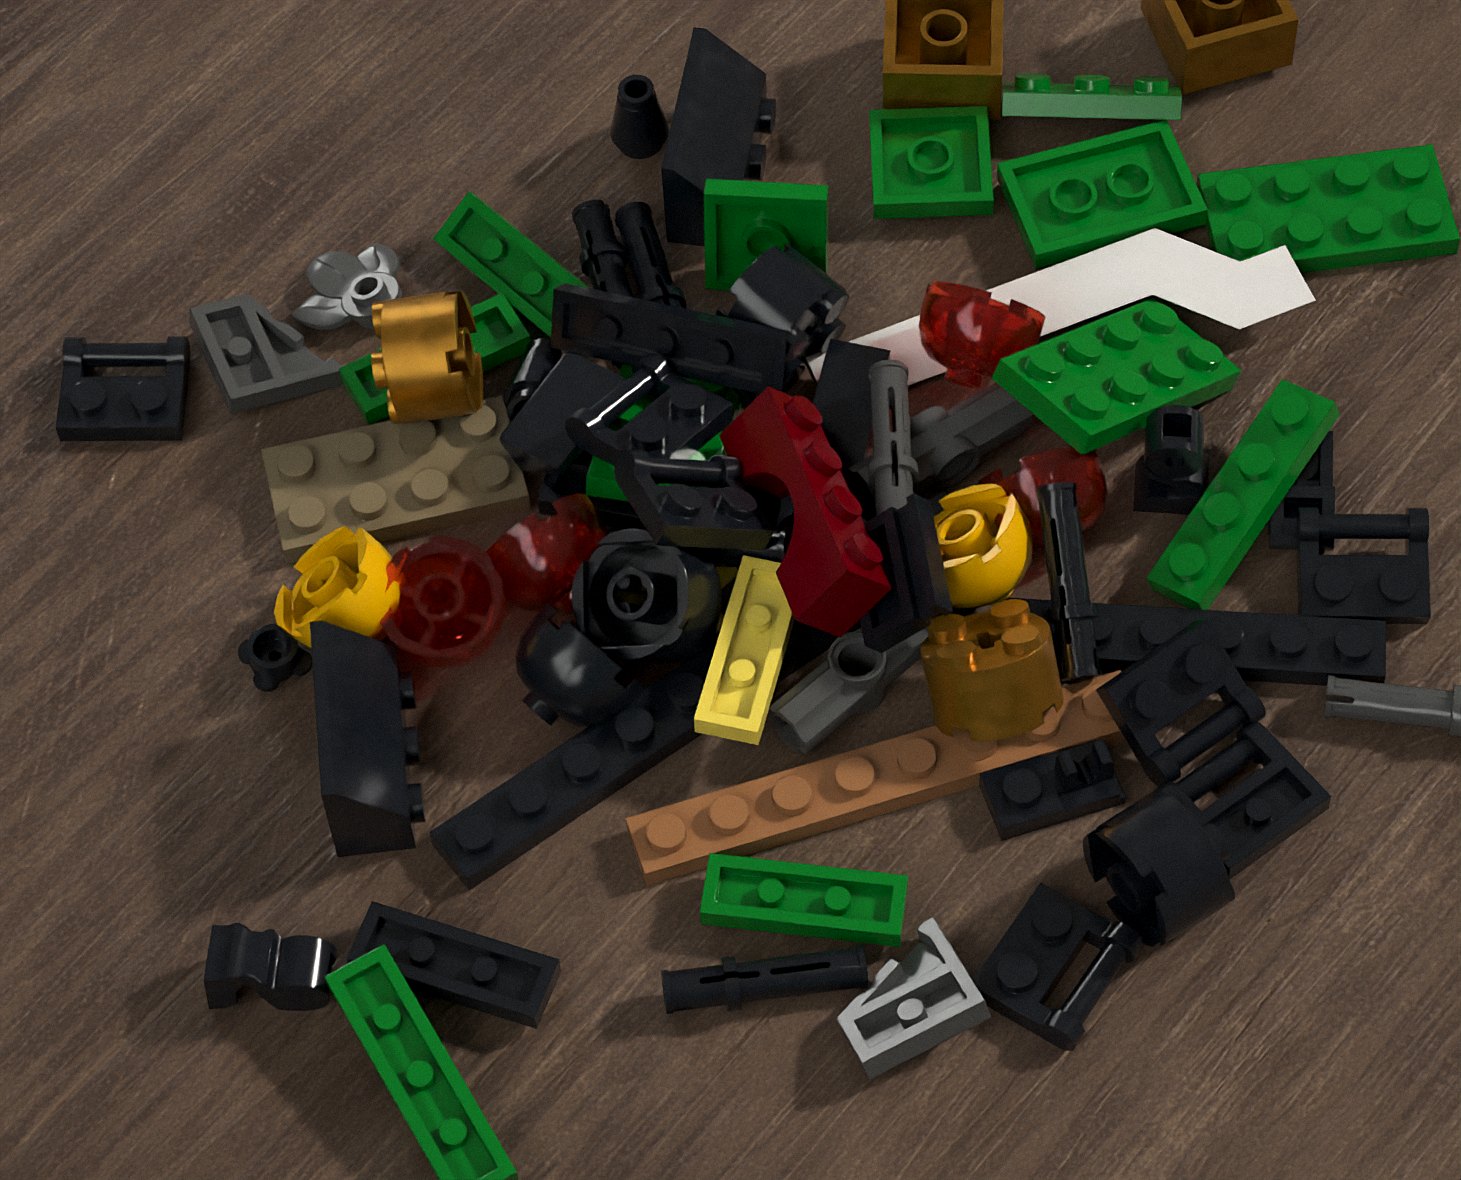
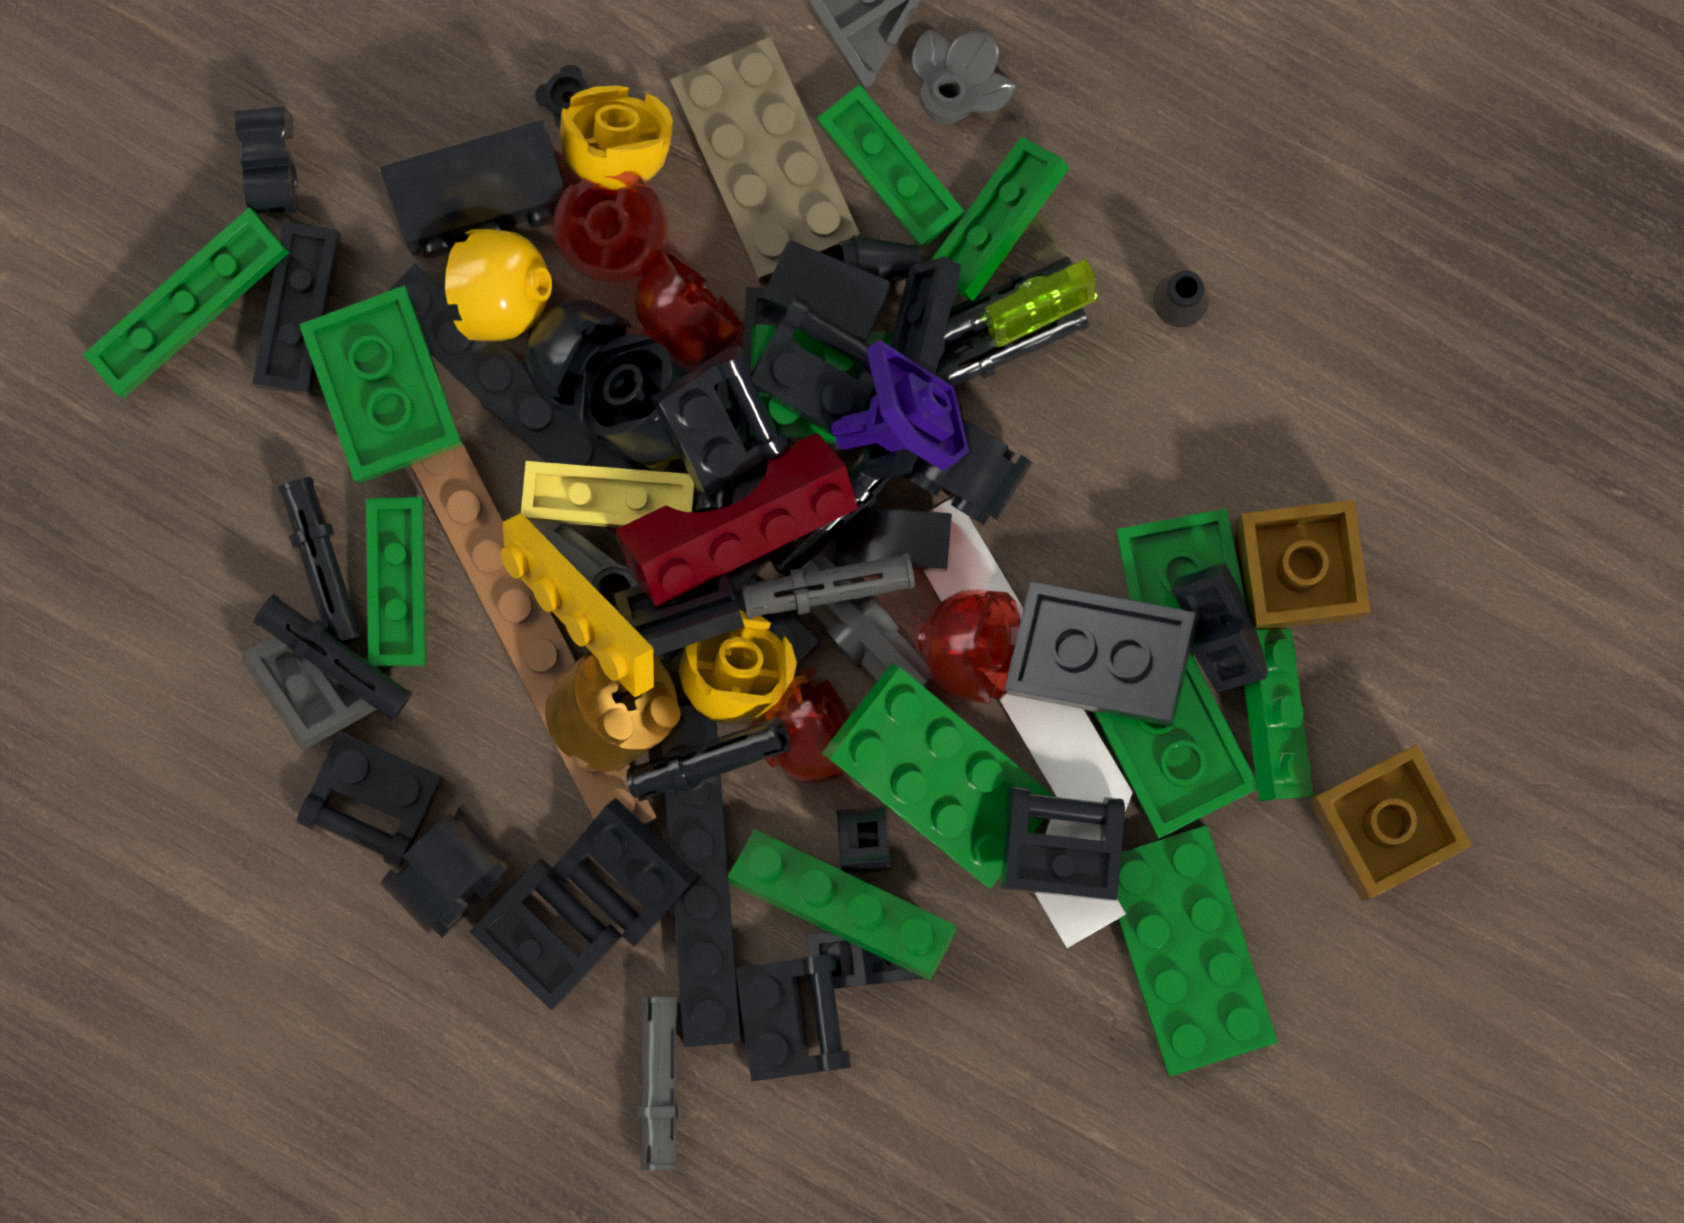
camera: 80 degrees right, 25 degrees up
(427, 357) = (850, 160): pearl gold brick -> none
(484, 714) = (496, 284): none -> yellow cylinder
(570, 864) = (381, 384): none -> green plate
(620, 223) = (1041, 302): none -> clear neon green plate
(713, 132) = (1154, 372): black slope -> none
(727, 314) = (909, 412): none -> dark purple piece
(754, 216) = (1048, 435): green plate -> none
(865, 981) = (278, 618): none -> black pin
(875, 662) = (578, 605): none -> yellow plate
(997, 115) = (1224, 630): none -> black slope
(1008, 215) = (1101, 653): none -> black plate
(1051, 789) = (538, 774): black plate -> none
(1226, 278) = (1057, 862): none -> black plate

